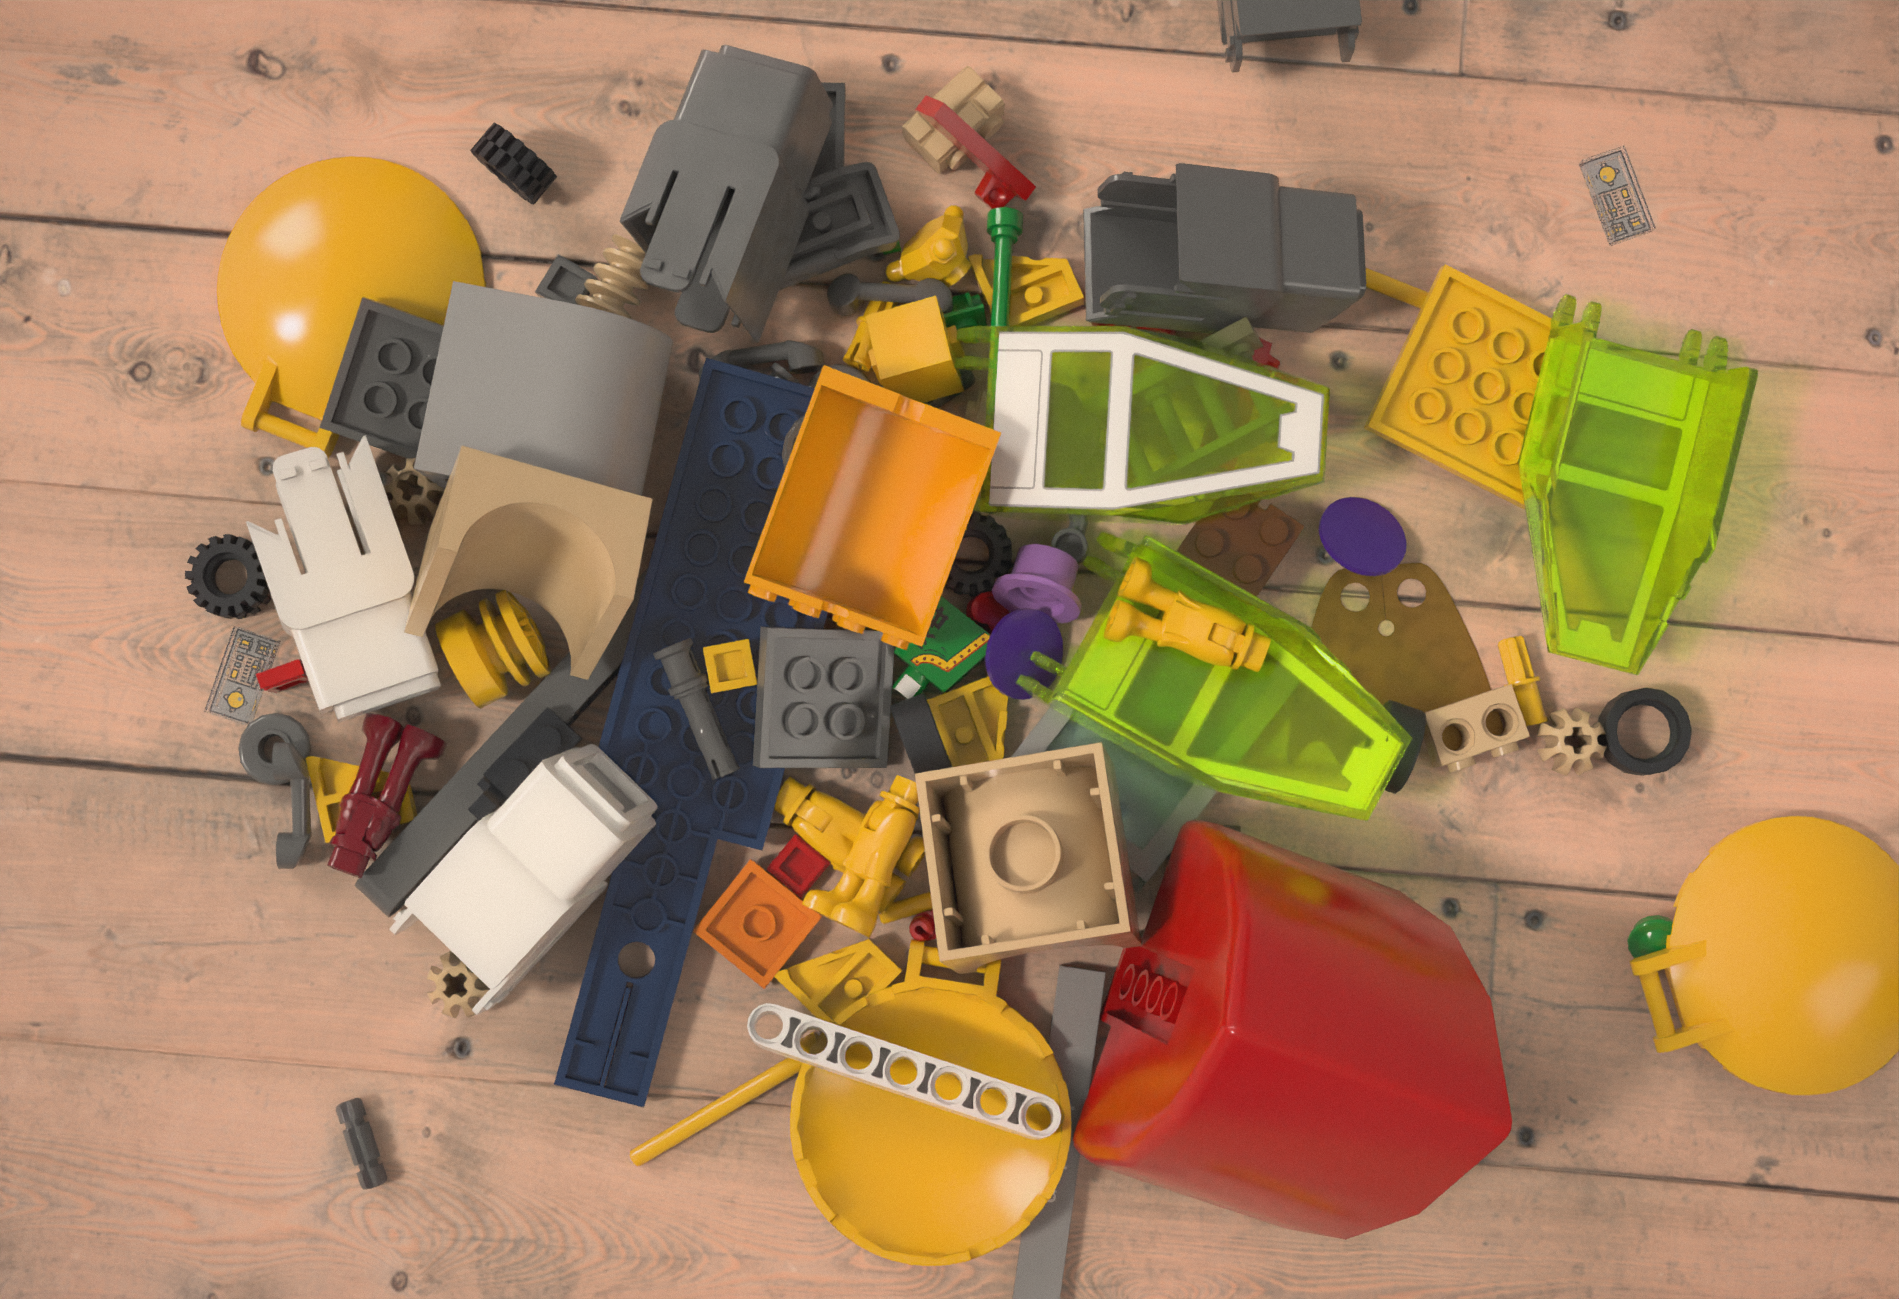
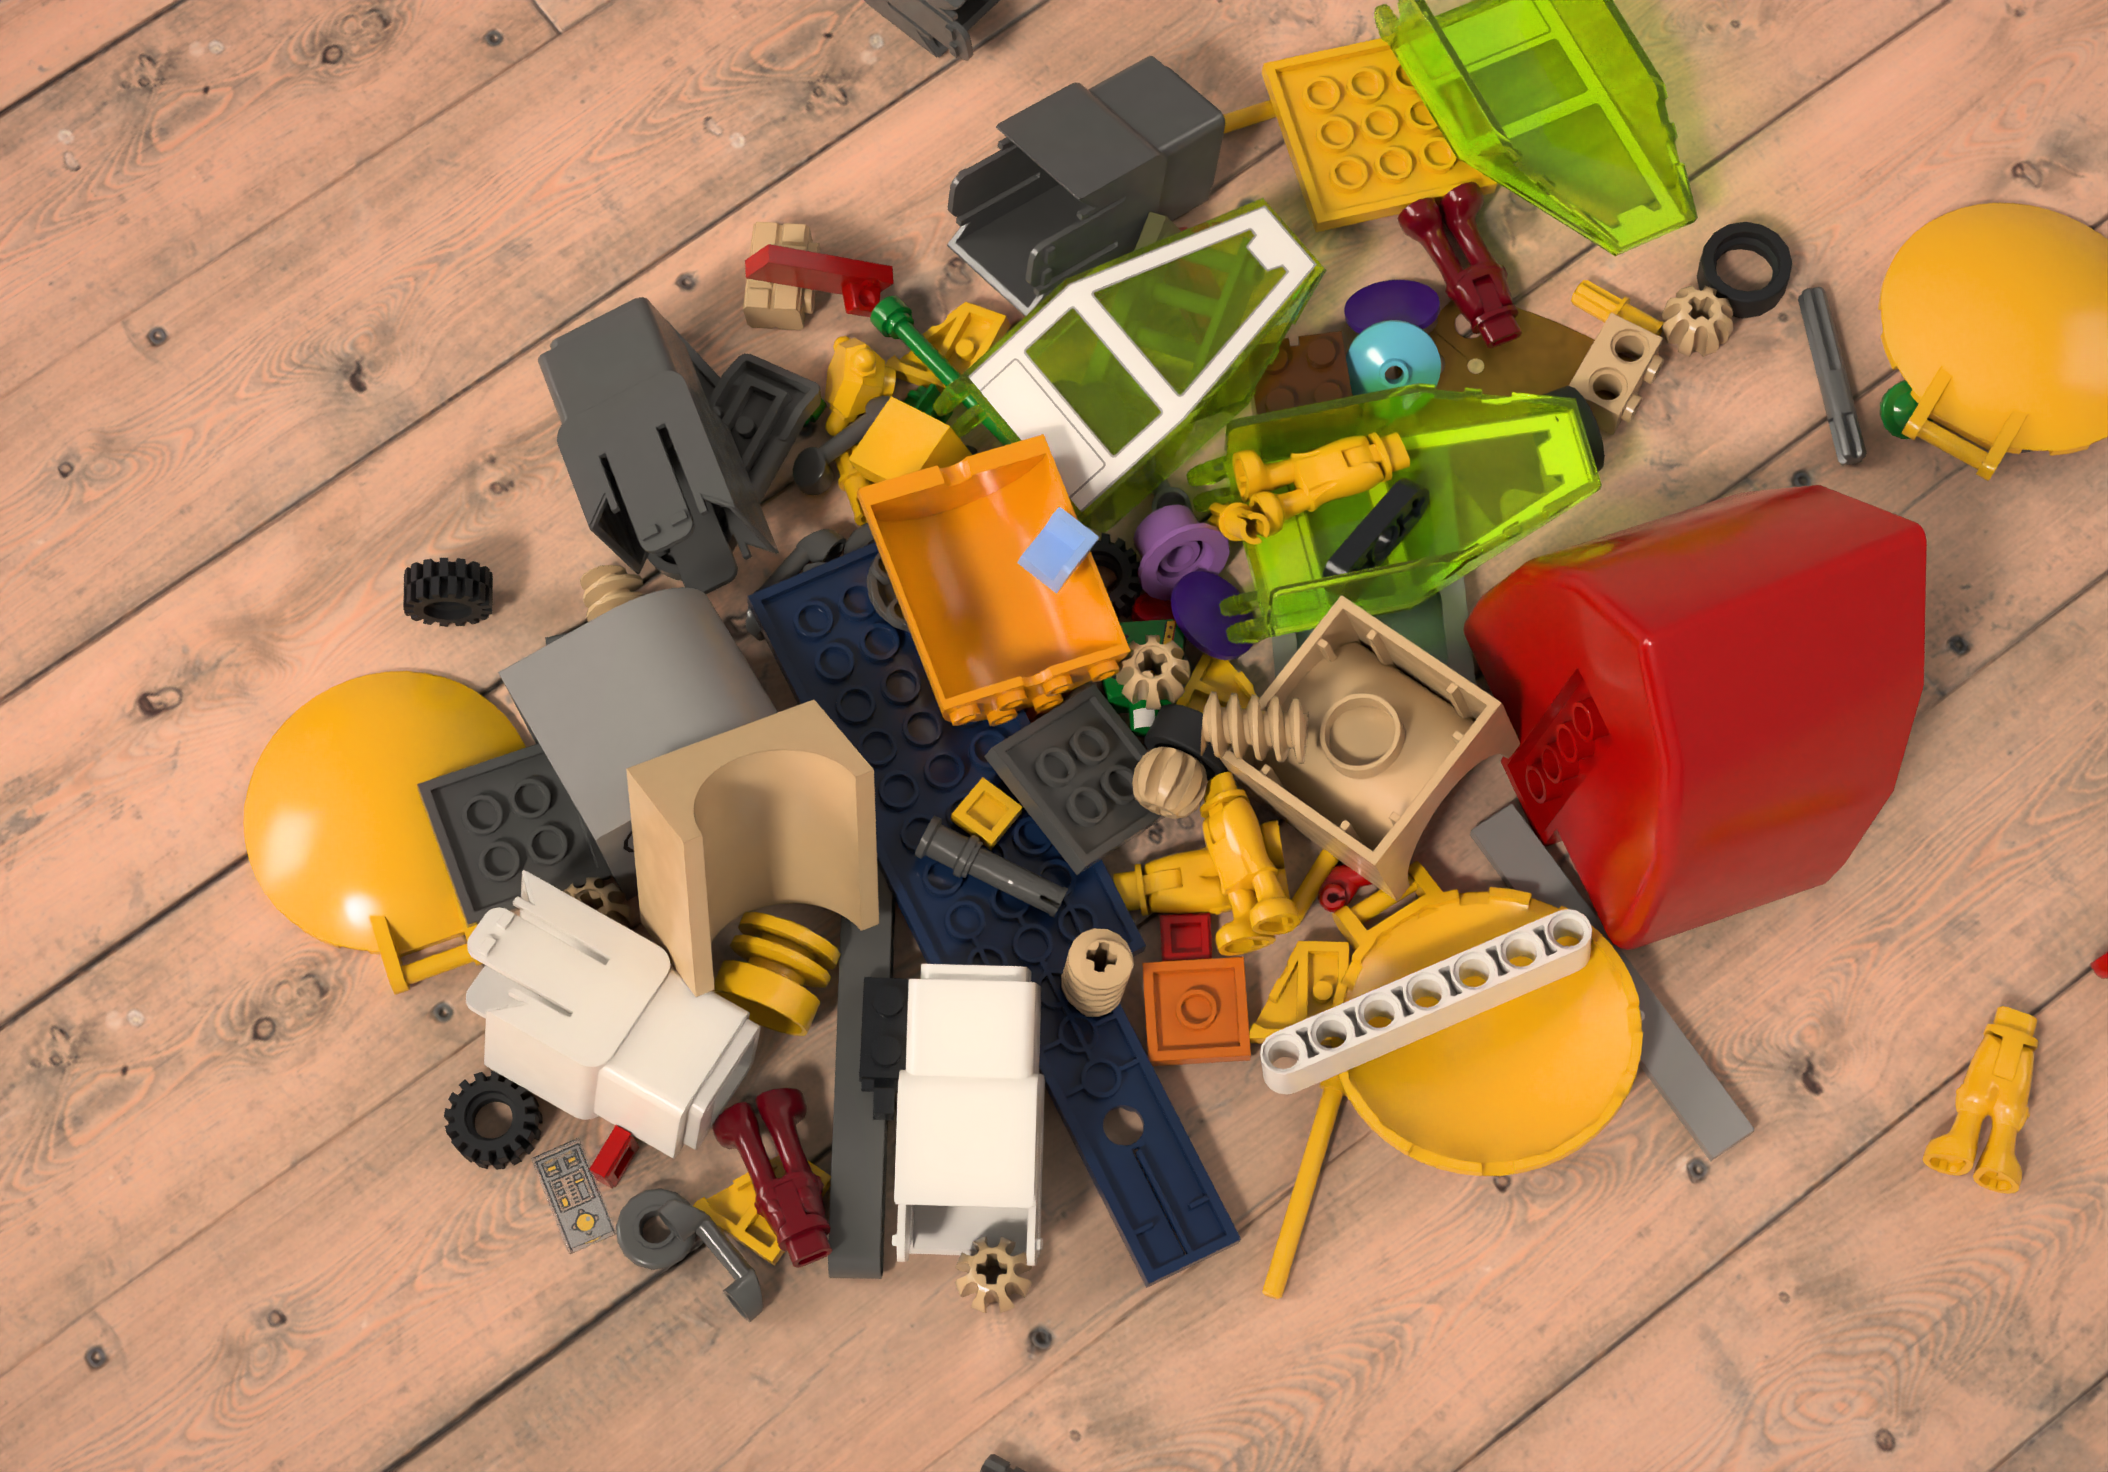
camera: 40 degrees left, 15 degrees down
(695, 870) = (1097, 972): none -> tan piece
(875, 756) = (1169, 782): none -> tan piece
(927, 654) = (1165, 662): none -> tan piece
(928, 534) = (1058, 550): none -> light blue panel
(948, 787) = (1254, 728): none -> tan piece
(1095, 608) = (1239, 522): none -> yellow axle
(1182, 705) = (1381, 529): none -> black beam
(1328, 569) = (1390, 345): none -> medium azure dish
(1441, 579) = (1481, 288): none -> dark red piece
(1629, 865) = (1832, 376): none -> dark grey axle

